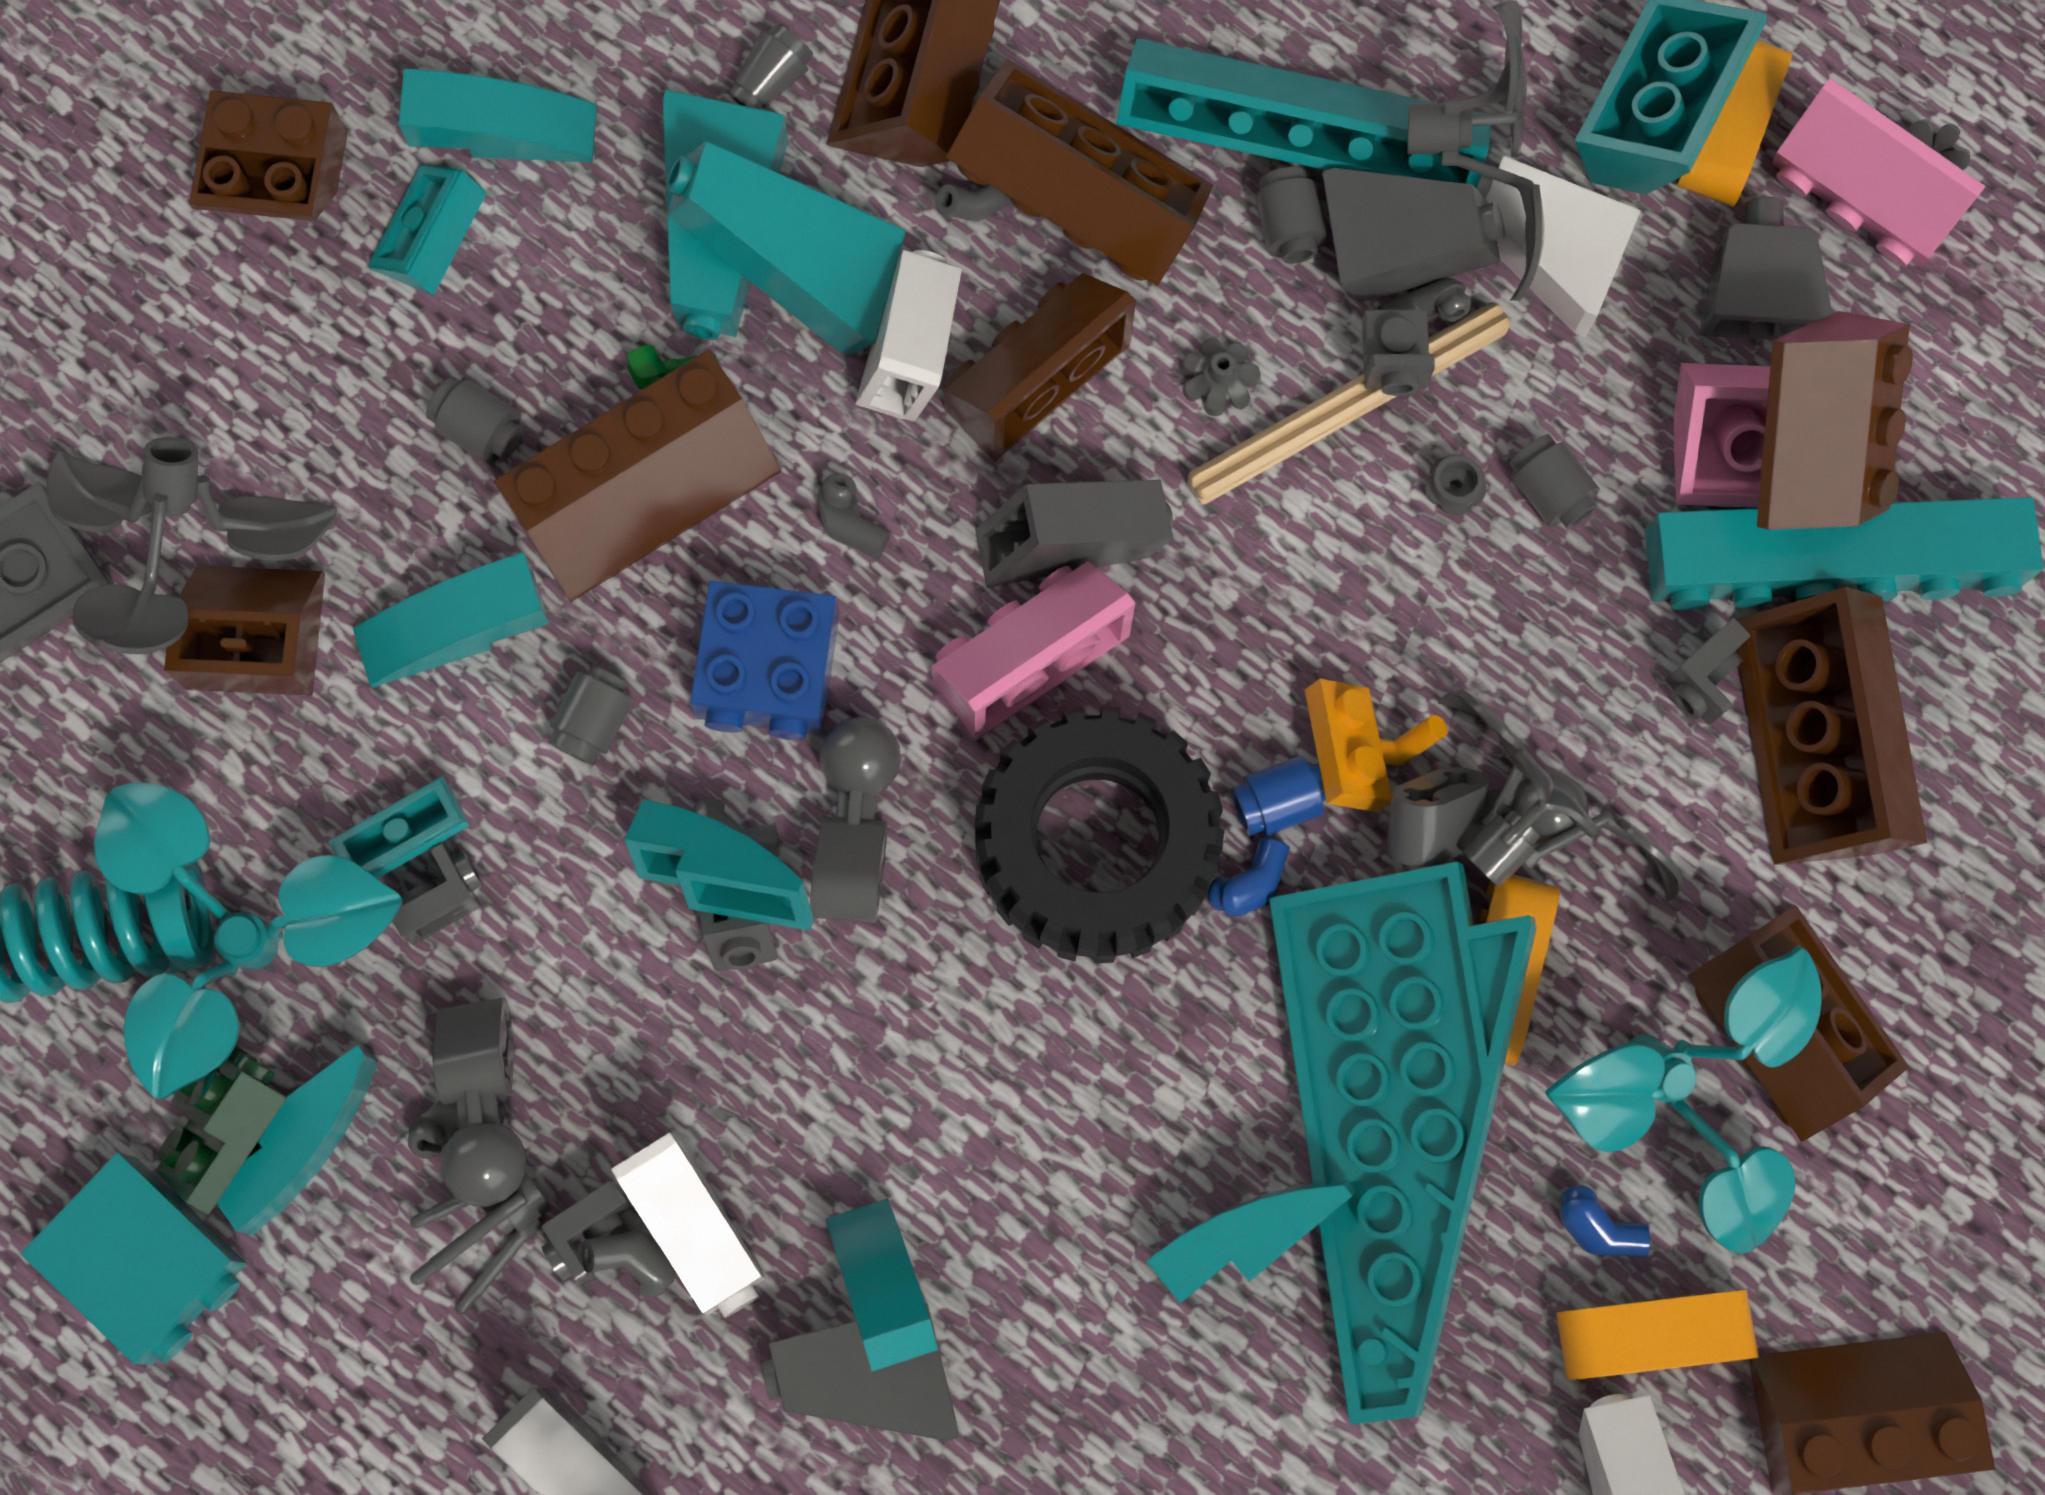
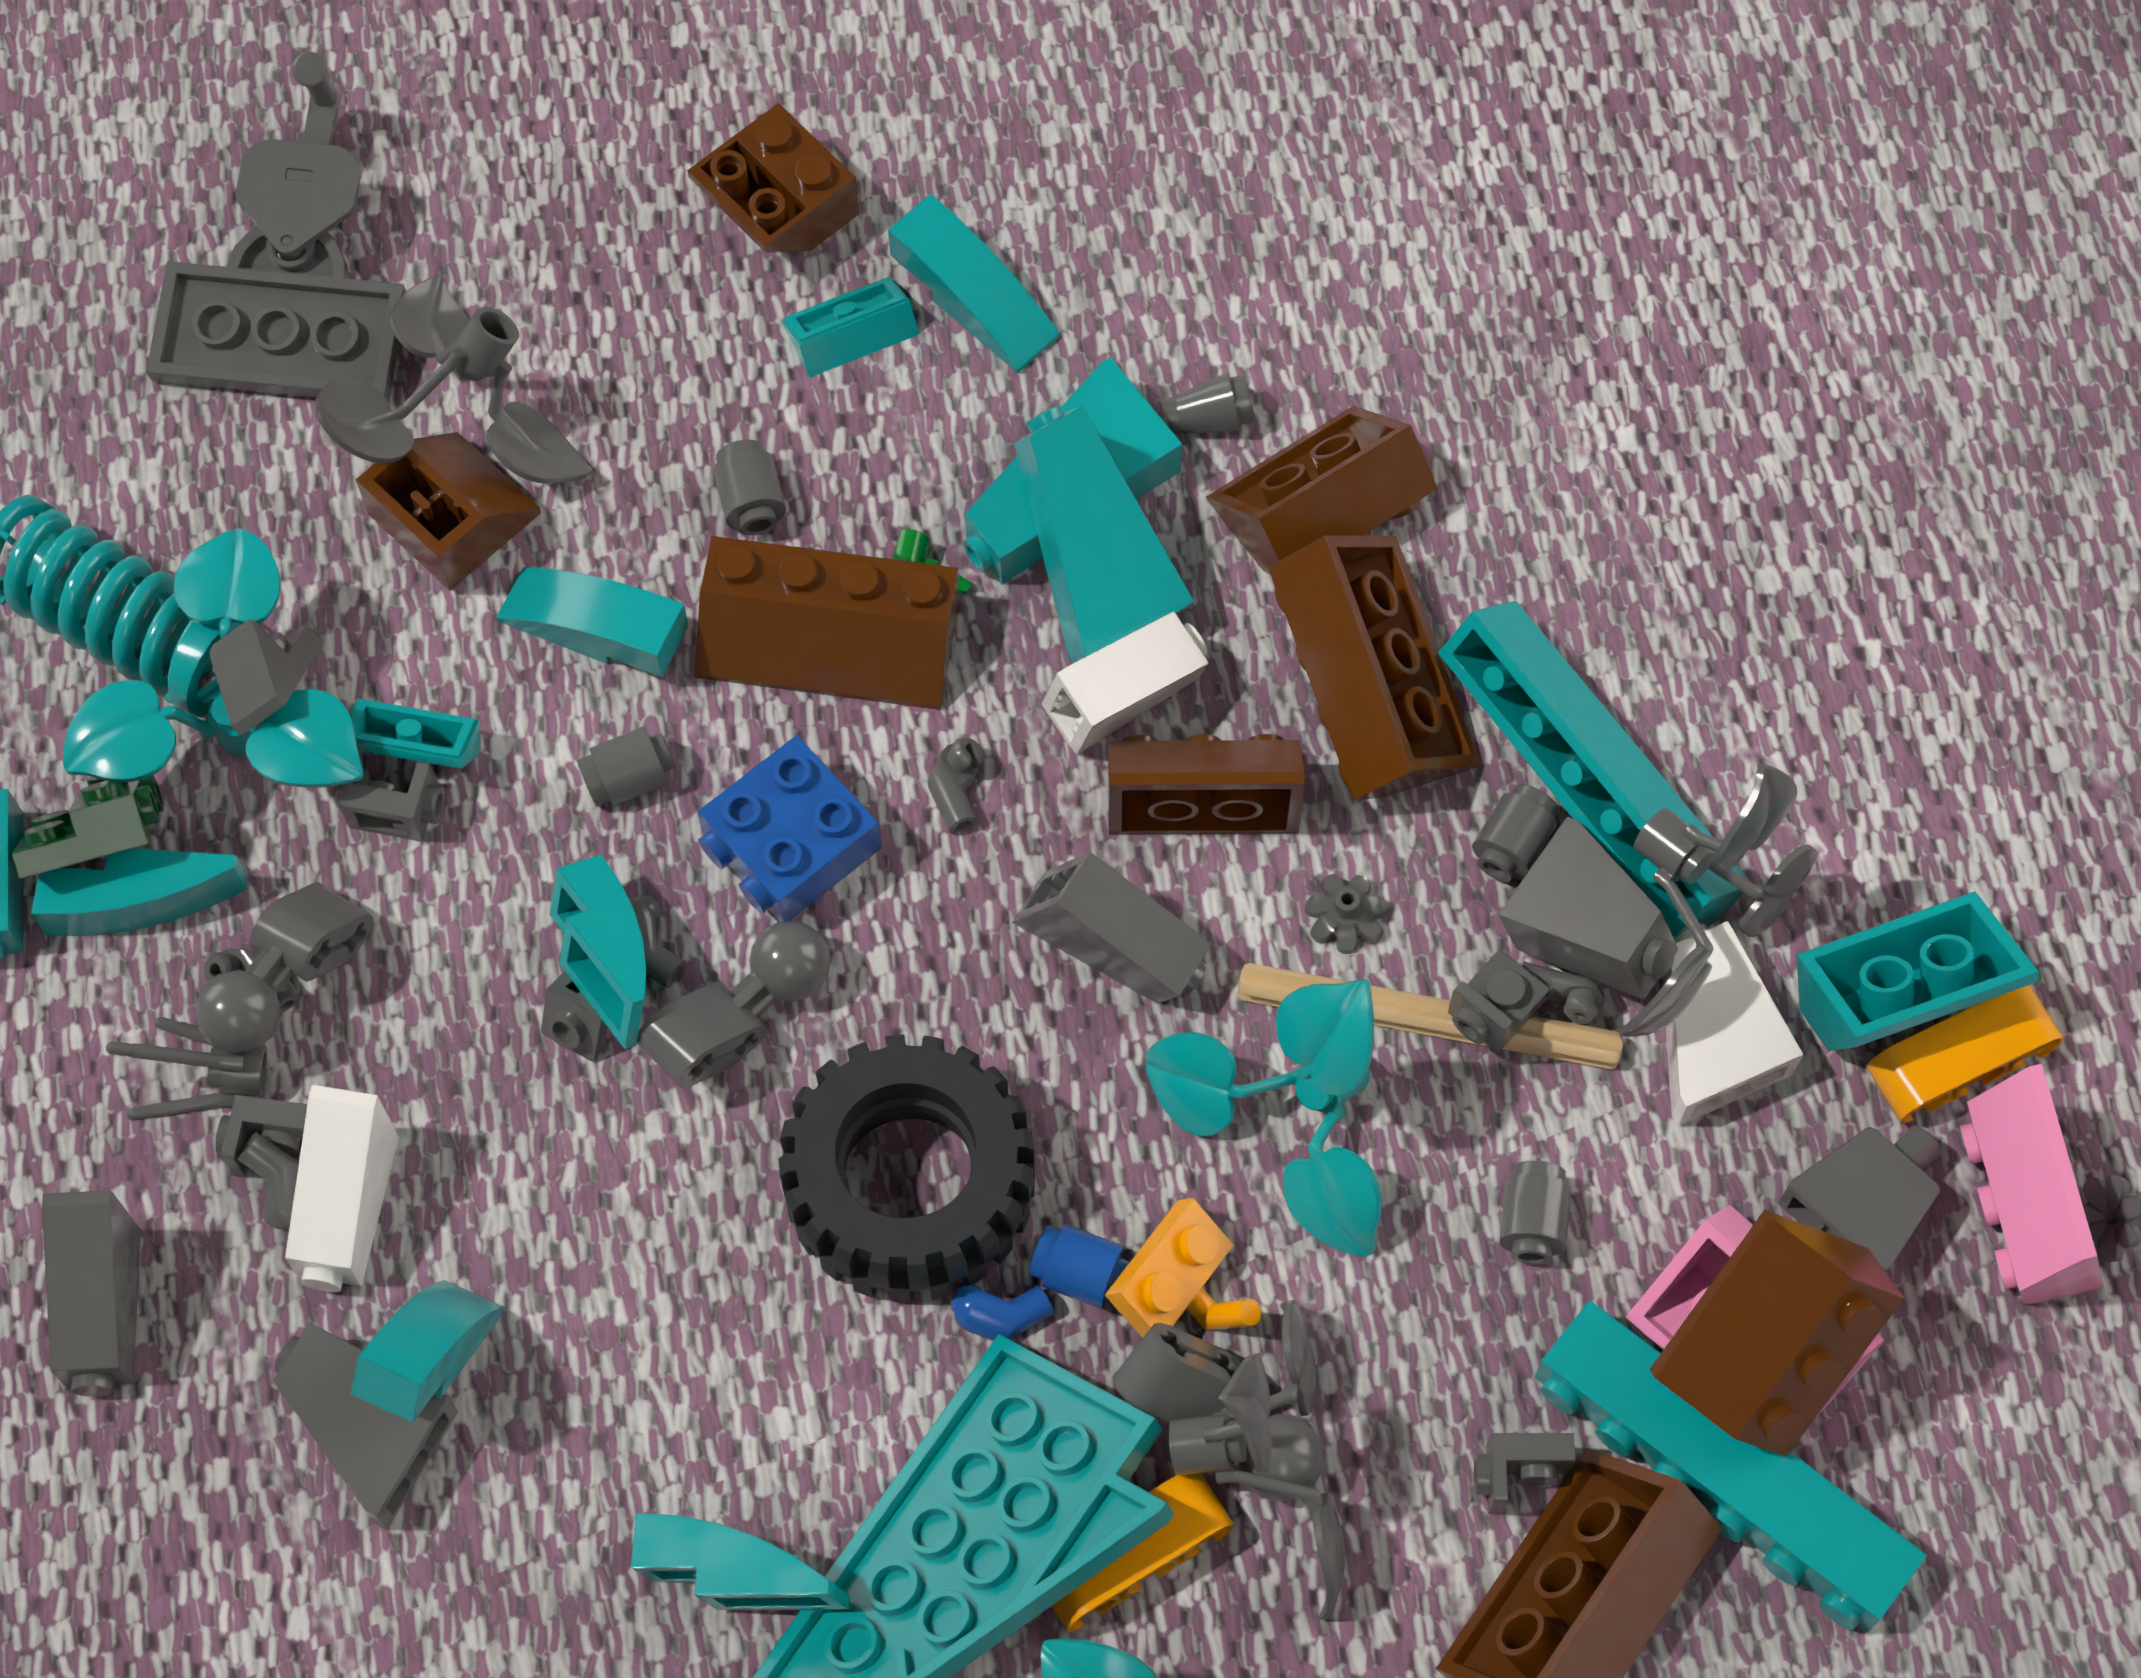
camera: 45 degrees right, 10 degrees down
(243, 886) = (260, 670): none -> dark grey slope
(970, 204) = (1265, 621): dark grey arm -> none
(1032, 647) = (992, 990): bright pink slope -> none
(1336, 480) = (1333, 1038): none -> teal plant
(1459, 469) = (1460, 1133): dark grey plate -> none

